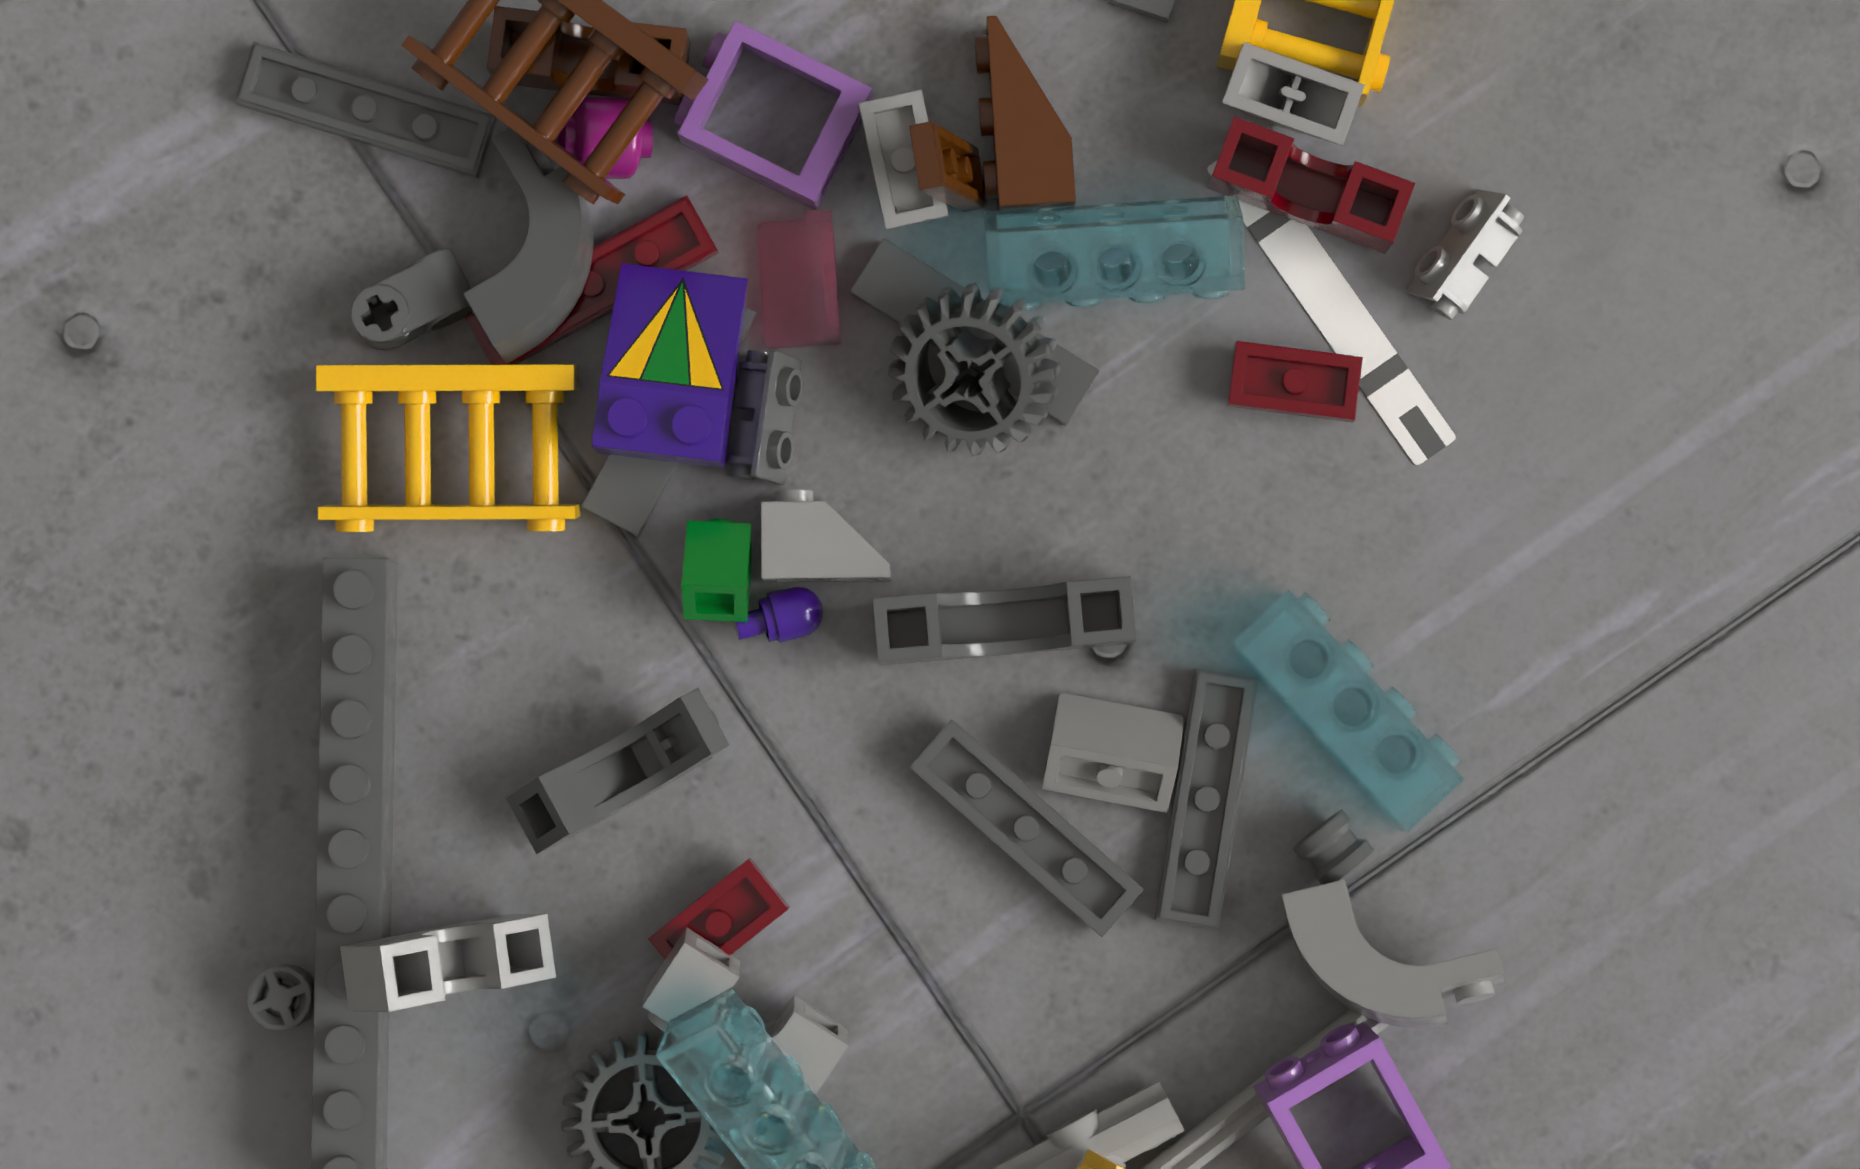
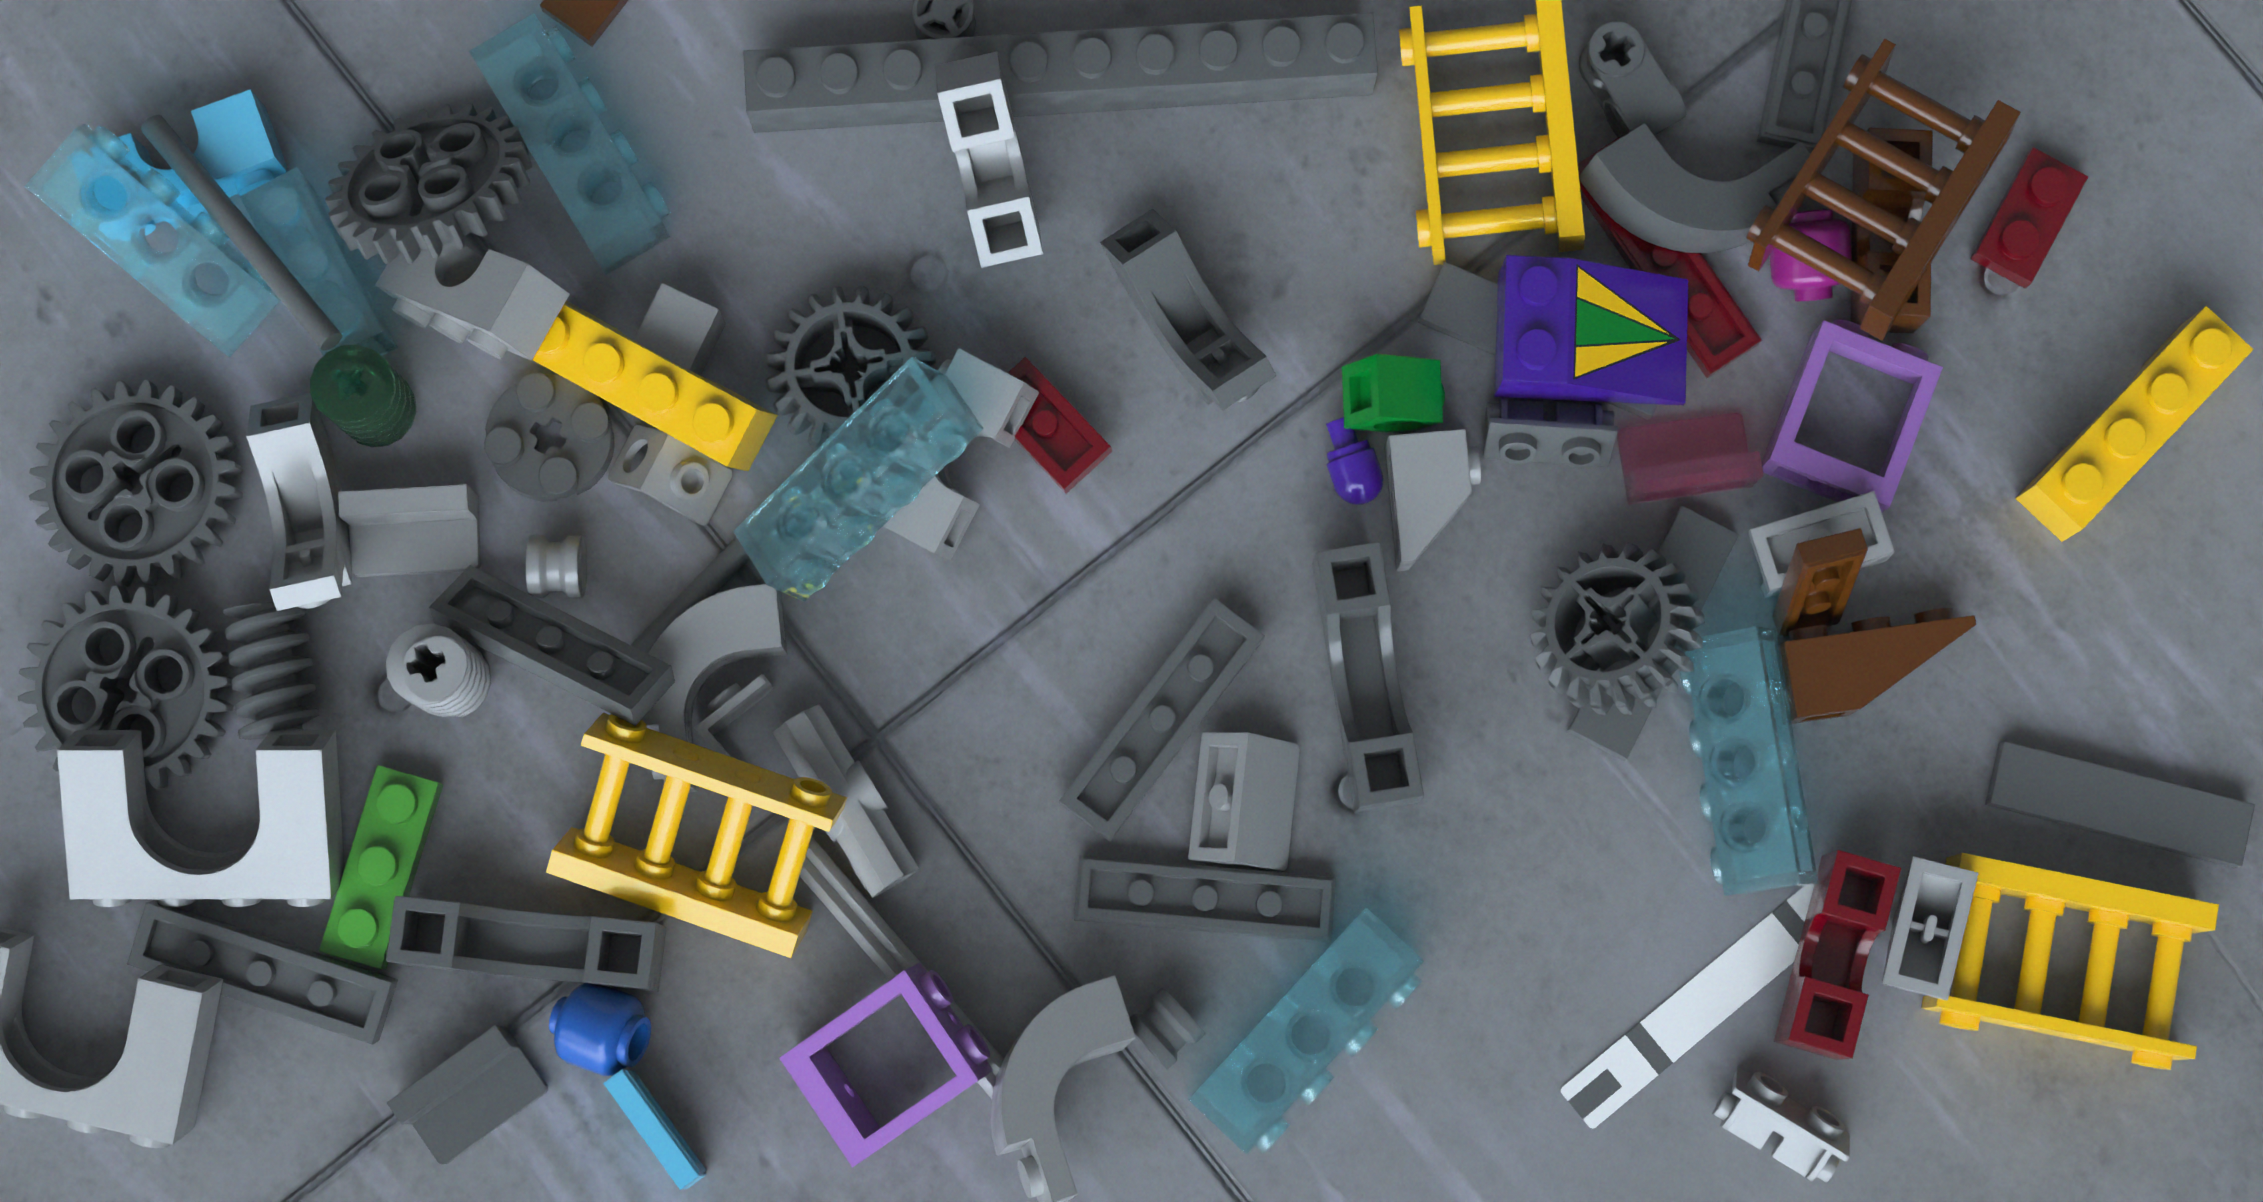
camera: 80 degrees right, 5 degrees down
(1294, 381) = (1634, 956): dark red plate -> none

